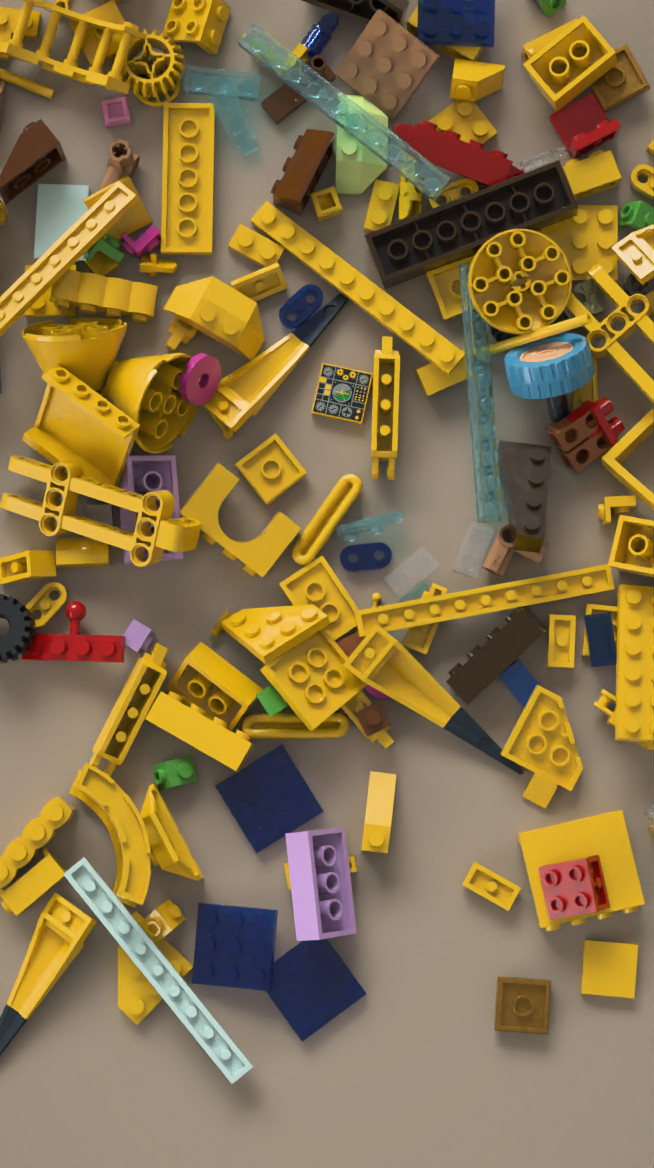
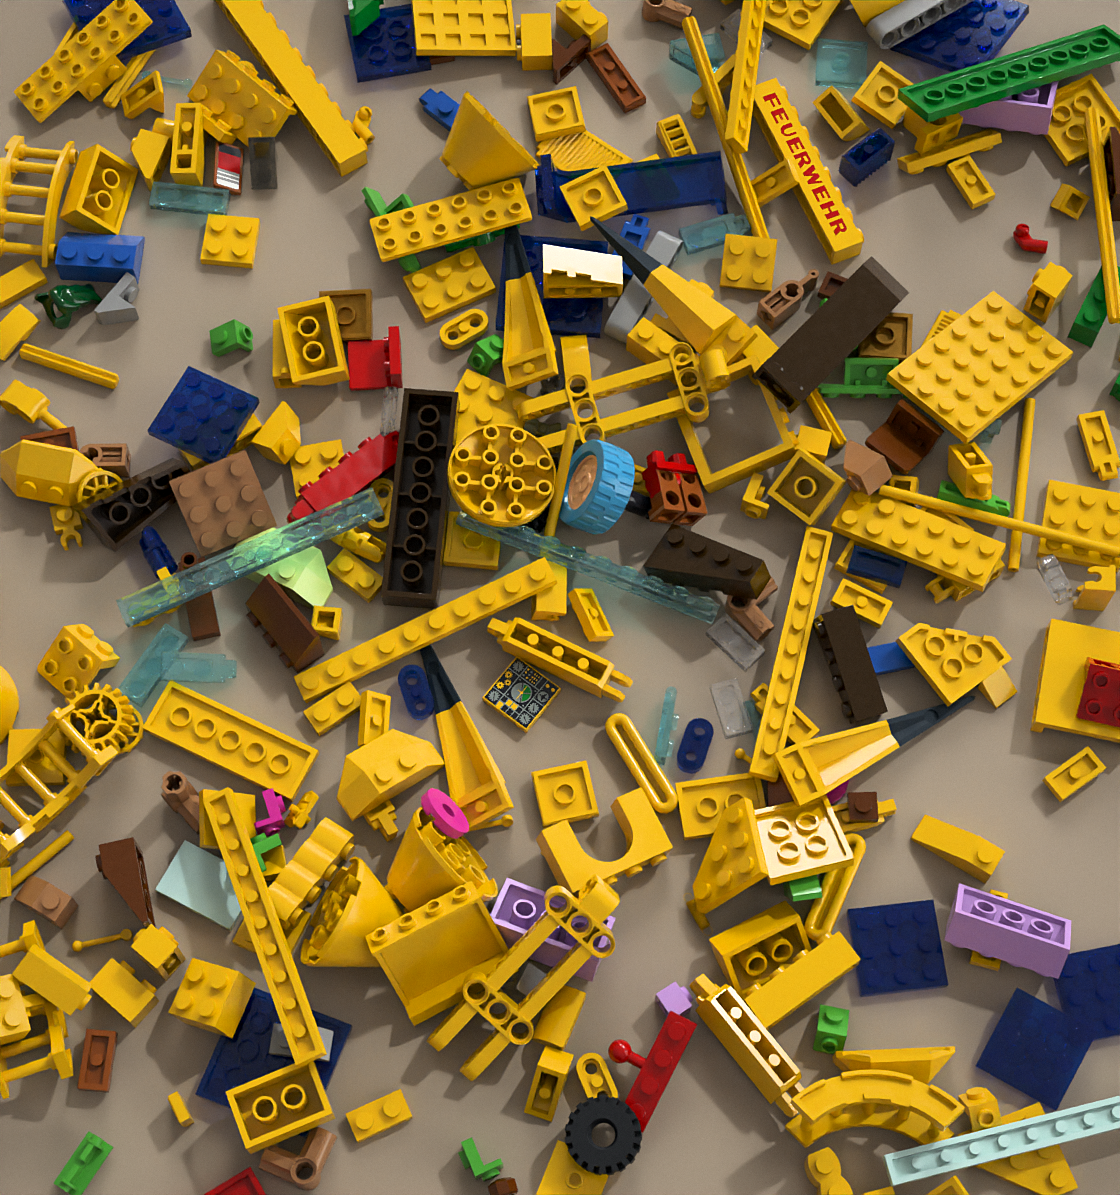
camera: 65 degrees left, 15 degrees down
(116, 111) = (123, 780): bright pink tile -> none
(438, 417) = (590, 614): none -> yellow plate
(592, 174) = (426, 369): yellow brick -> none

